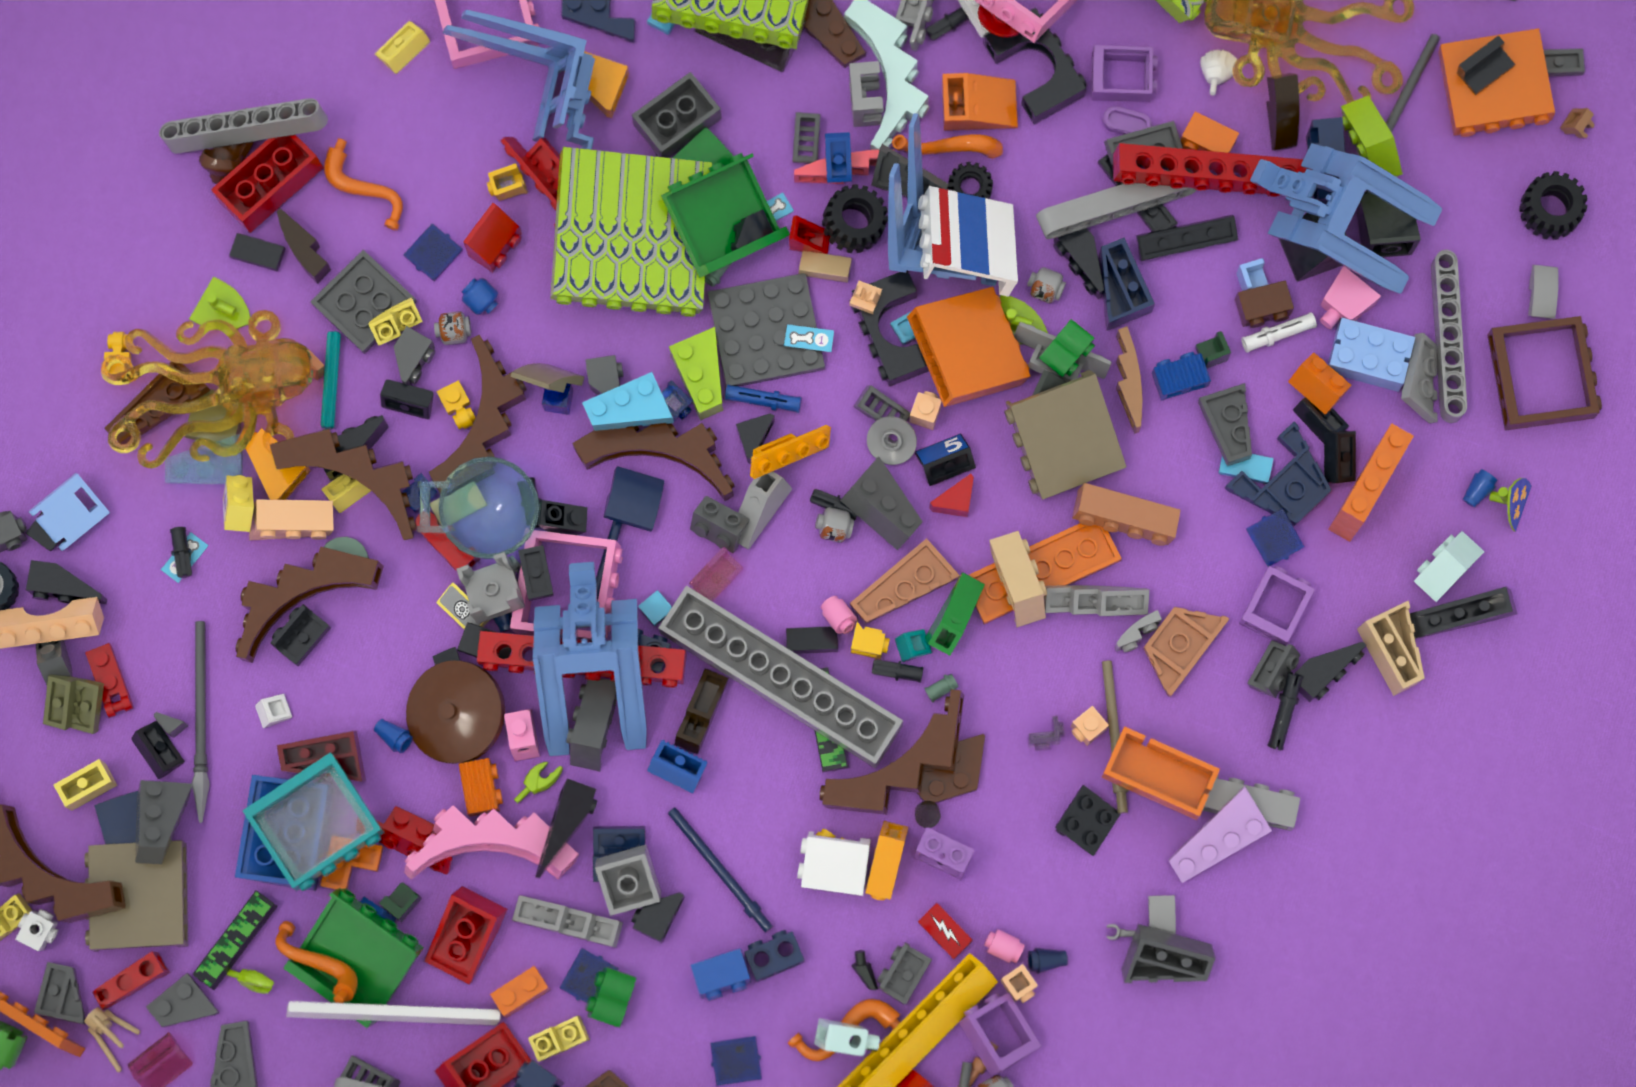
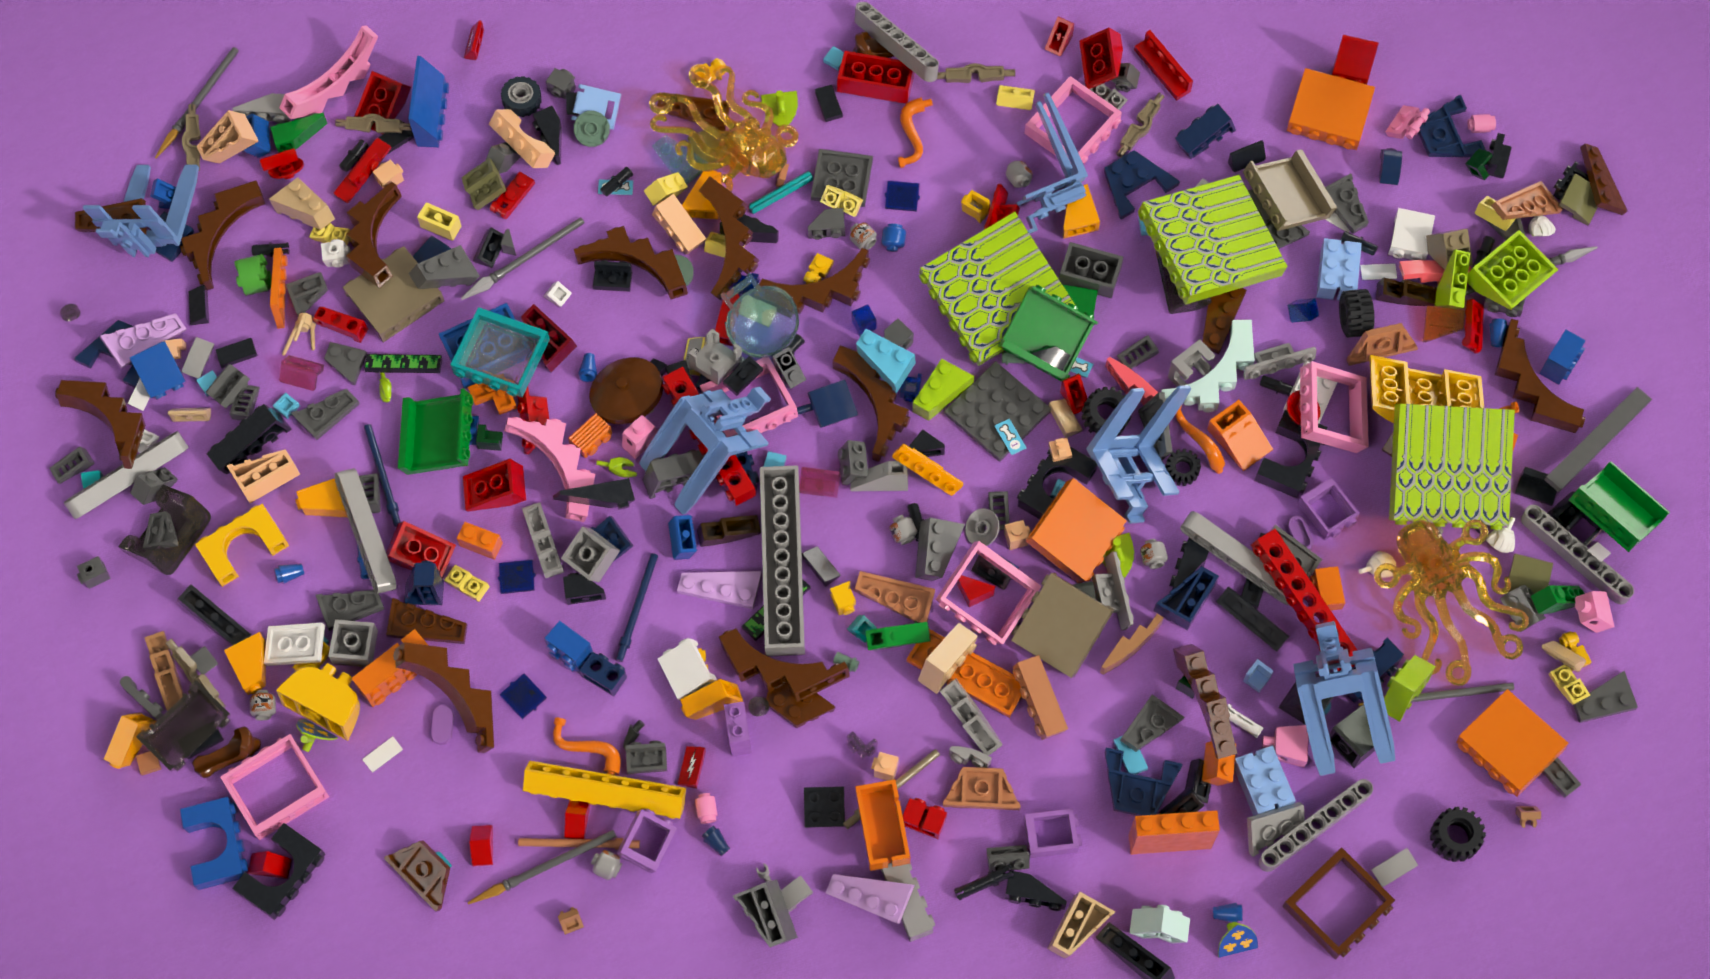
camera: 55 degrees right, 10 degrees down
(92, 535) = (591, 128): none -> sand green tile
(205, 206) = (834, 58): none -> medium azure tile
(303, 247) = (849, 123): dark brown slope -> none
(346, 977) = (419, 436): orange animal -> none
(349, 59) = (985, 73): none -> dark tan piece
(392, 1013) = (415, 474): white tile -> none
(405, 1064) = (392, 506): none -> dark blue bar
(406, 399) = (799, 239): black slope -> none
(492, 238) = (933, 218): red slope -> none
(503, 110) = (1019, 174): none -> light grey head
(547, 376) = (870, 303): dark tan slope -> none
(611, 996) = (511, 594): green brick -> none
(763, 398) = (960, 453): blue pin -> none
(764, 759) = (723, 587): none -> lavender wing
(836, 1035) = (572, 738): light aqua torso -> none
(838, 157) = (1136, 373): blue slope -> none
(838, 615) = (847, 569): bright pink brick -> none
(897, 670) = (838, 629): black axle -> none
(968, 236) = (1144, 480): white panel -> none
(1015, 473) = (1003, 565): none -> bright pink window
(1019, 984) = (687, 832): light nougat brick -> none
(1067, 349) = (1118, 588): green brick -> none
(1173, 724) = (924, 818): none -> red piece
(1181, 375) = (1158, 674): blue brick -> none
(1239, 338) = (1213, 705): none -> arch
(1264, 304) = (1245, 694): reddish brown brick -> none
(1275, 537) = (1096, 802): clear blue piece -> none
(1283, 110) = (1381, 619): dark brown slope -> none
(1485, 65) = (1514, 724): black panel -> none

